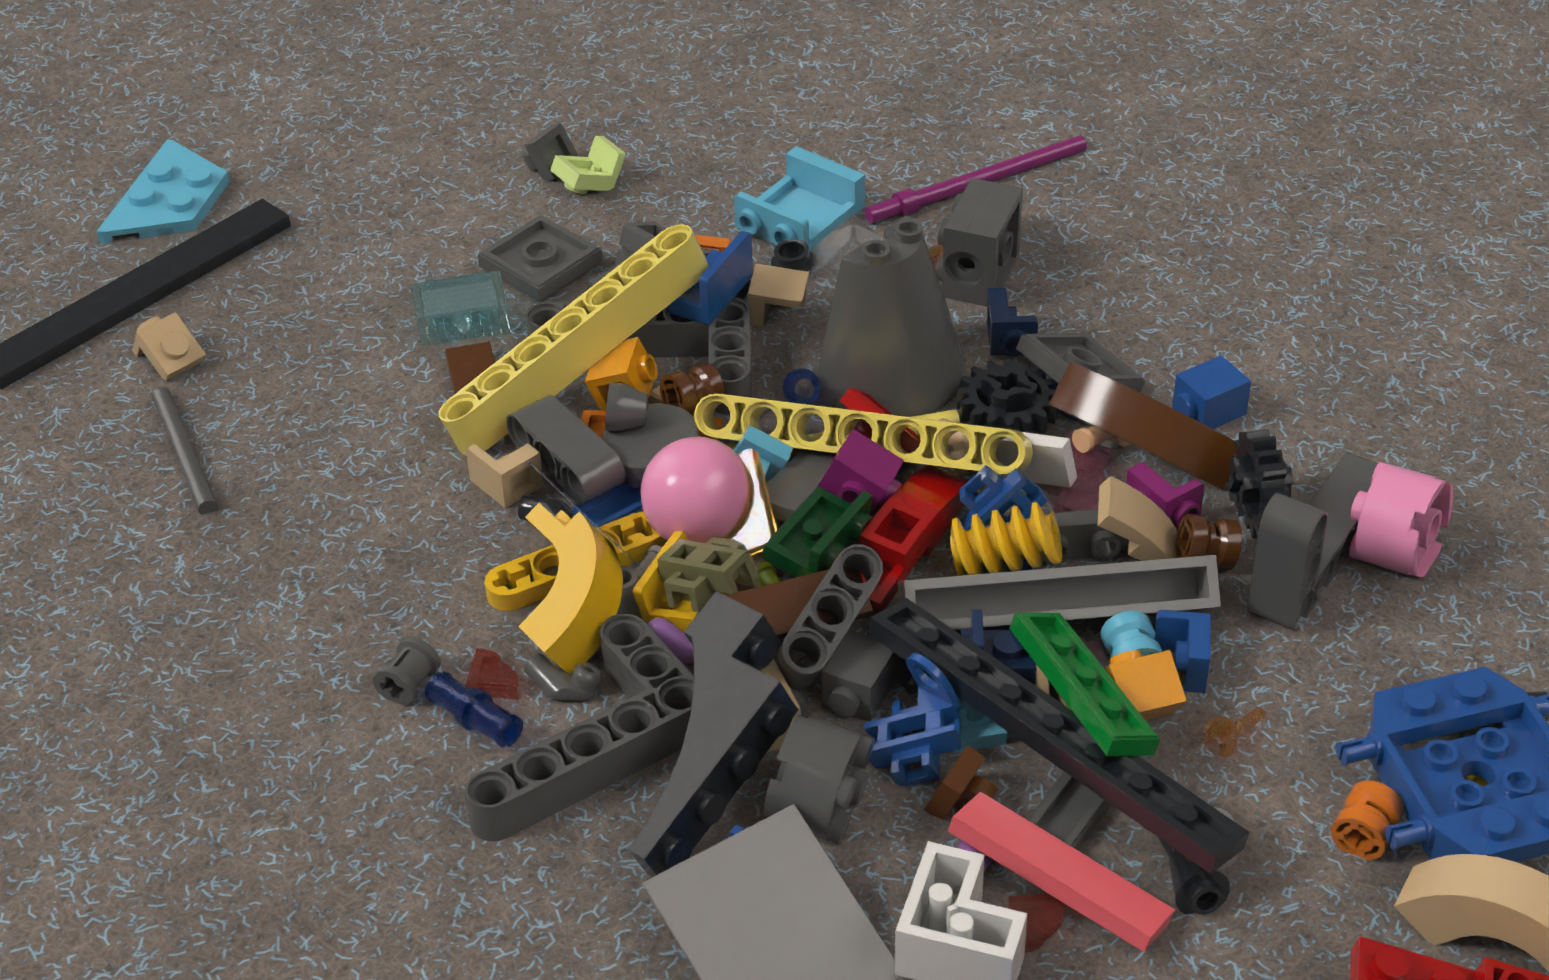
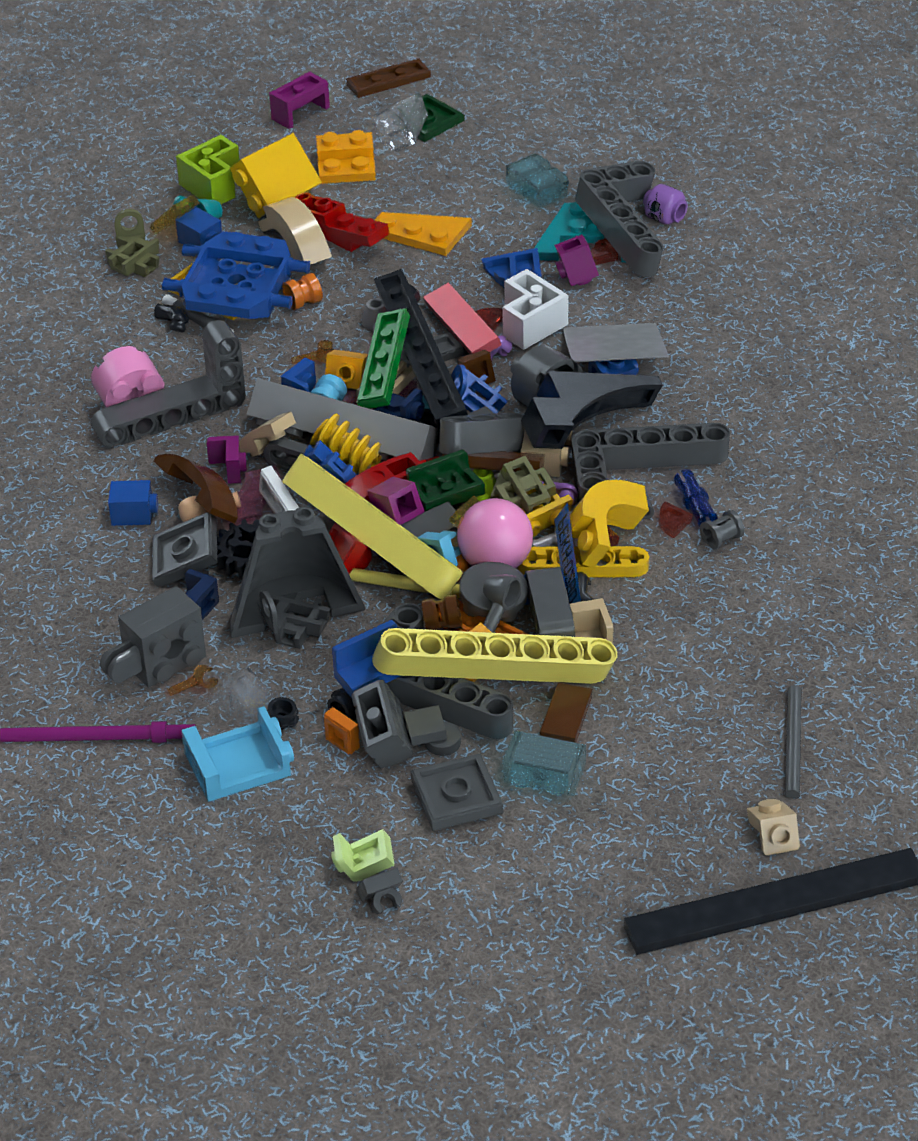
camera: 150 degrees left, 0 degrees up
(167, 196) = (712, 997): medium azure wing -> none
(775, 287) = (316, 676): tan panel -> none
(791, 380) = (372, 588): clear blue pin -> none
(1205, 538) = (229, 423): reddish brown wheel -> none
(1257, 475) = (179, 421): black gear -> none

